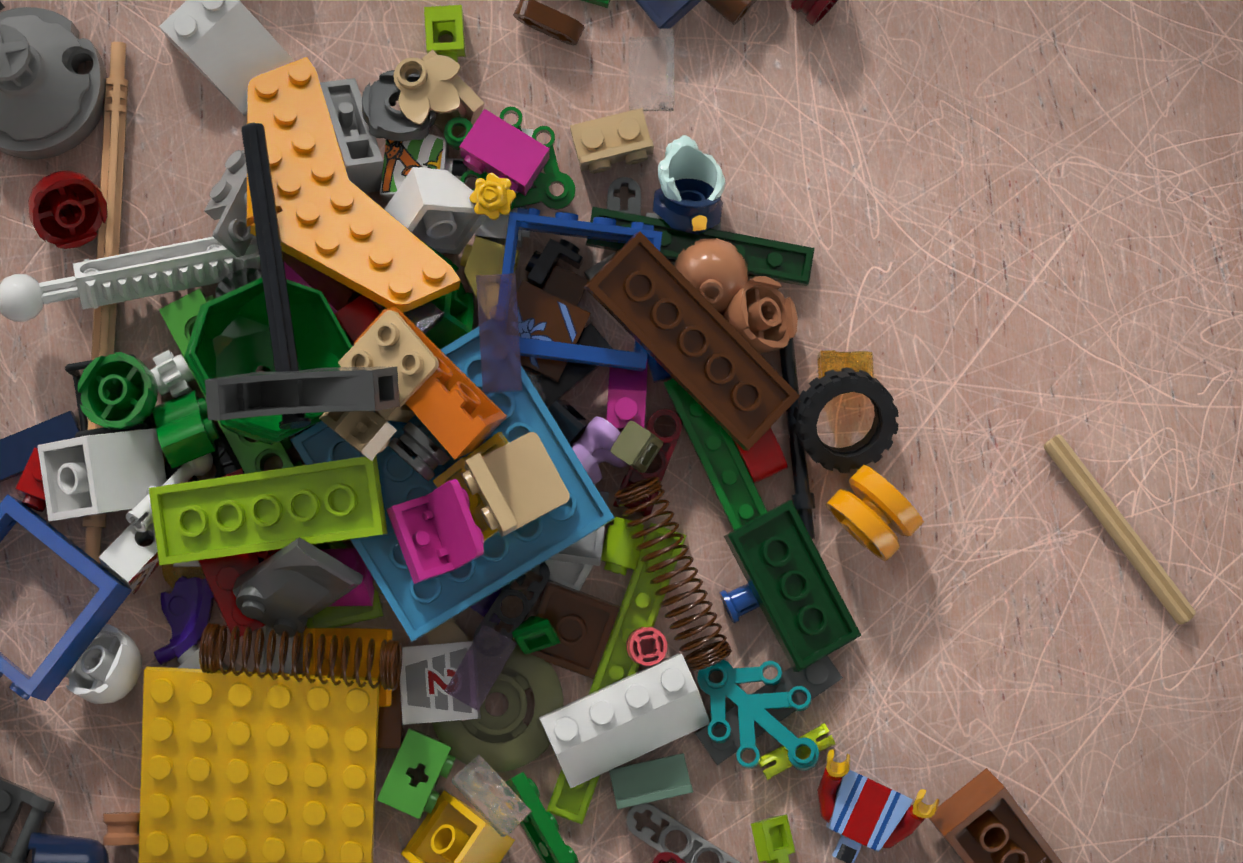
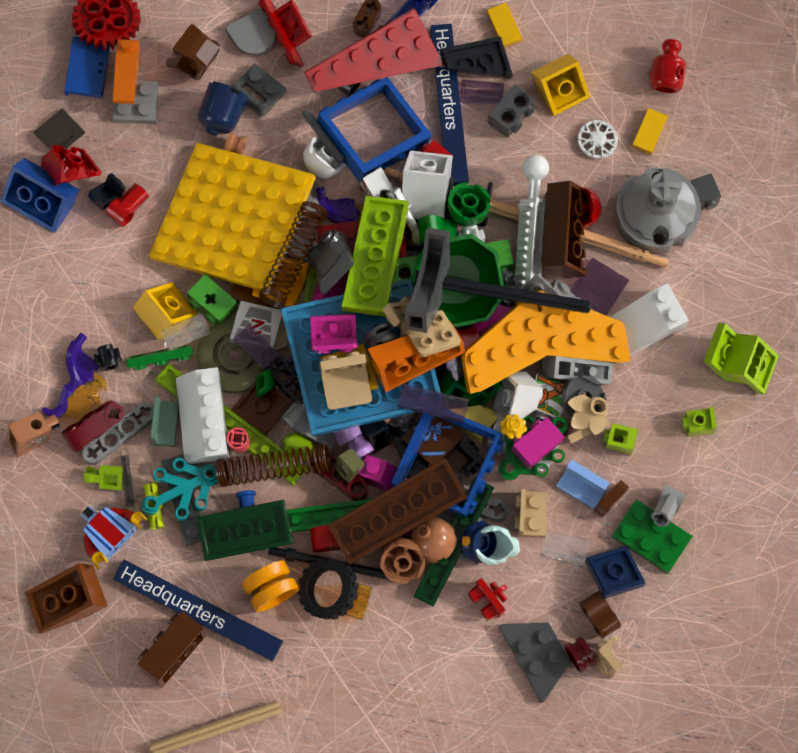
camera: 110 degrees right, 10 degrees down
(66, 677) = (323, 136): none -> dark grey bar
(116, 220) = (563, 230): none -> reddish brown wedge
(192, 143) = (600, 286): none -> clear purple tile
(539, 74) = (582, 484): none -> light blue panel
(765, 815) = (126, 462): none -> dark grey piece
(785, 152) = (482, 591): none -> red hips
(835, 65) = (537, 654): none -> dark grey wing
(941, 622) = (199, 610): none -> dark blue tile
(1027, 638) = (171, 648): none -> reddish brown brick

